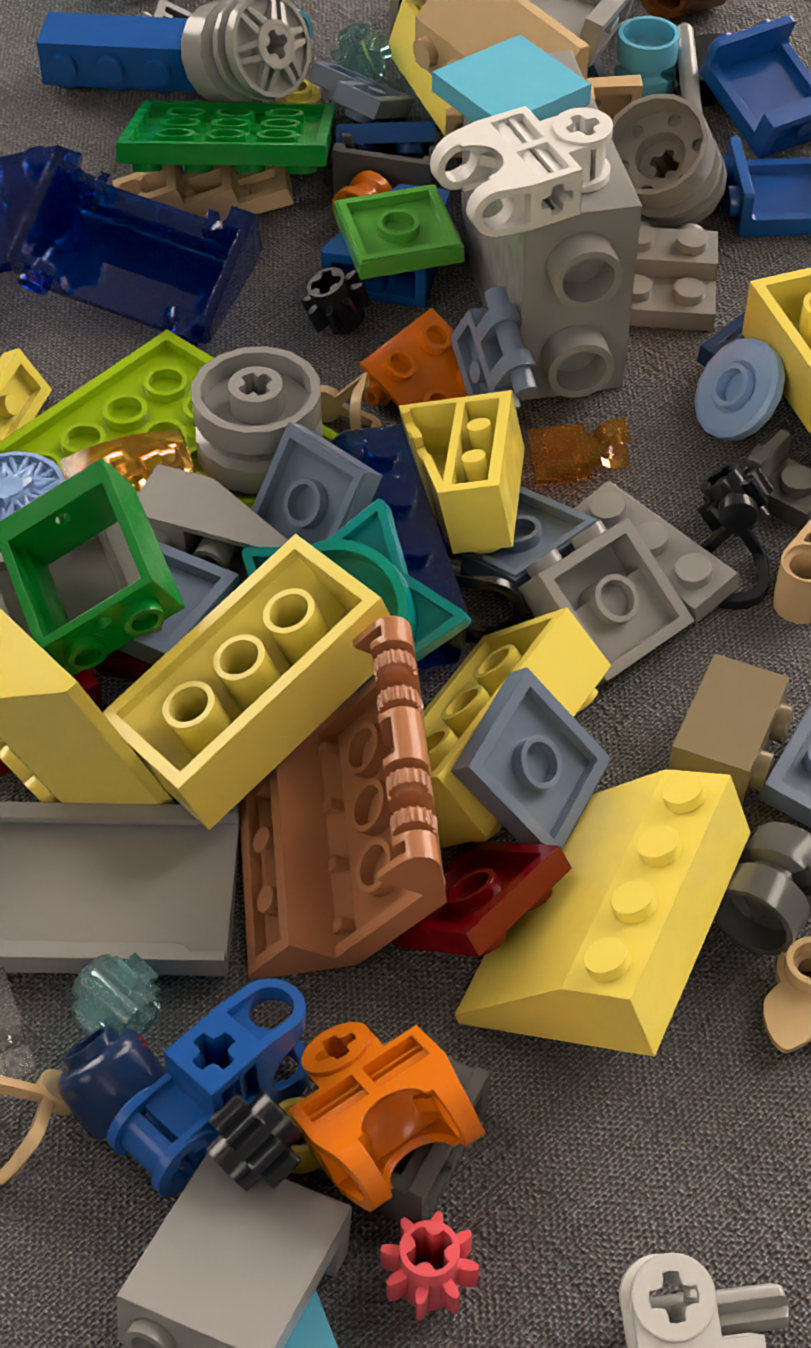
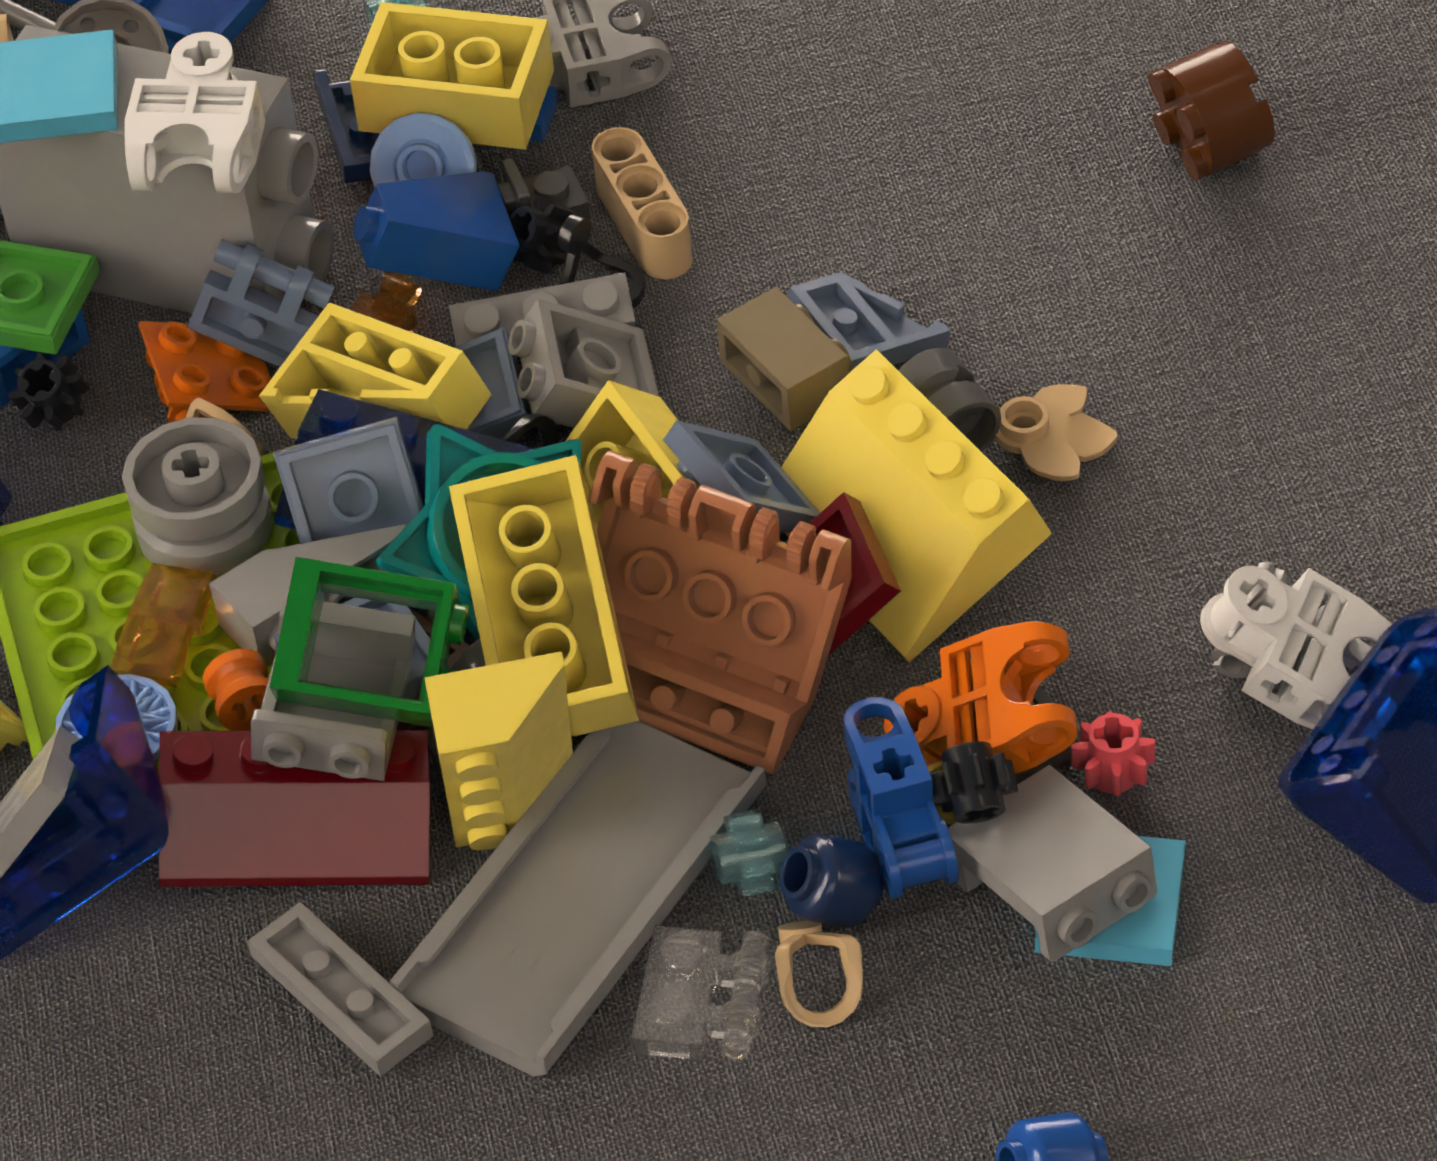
camera: 55 degrees left, 0 degrees up
(667, 423) = (439, 229): none -> blue slope

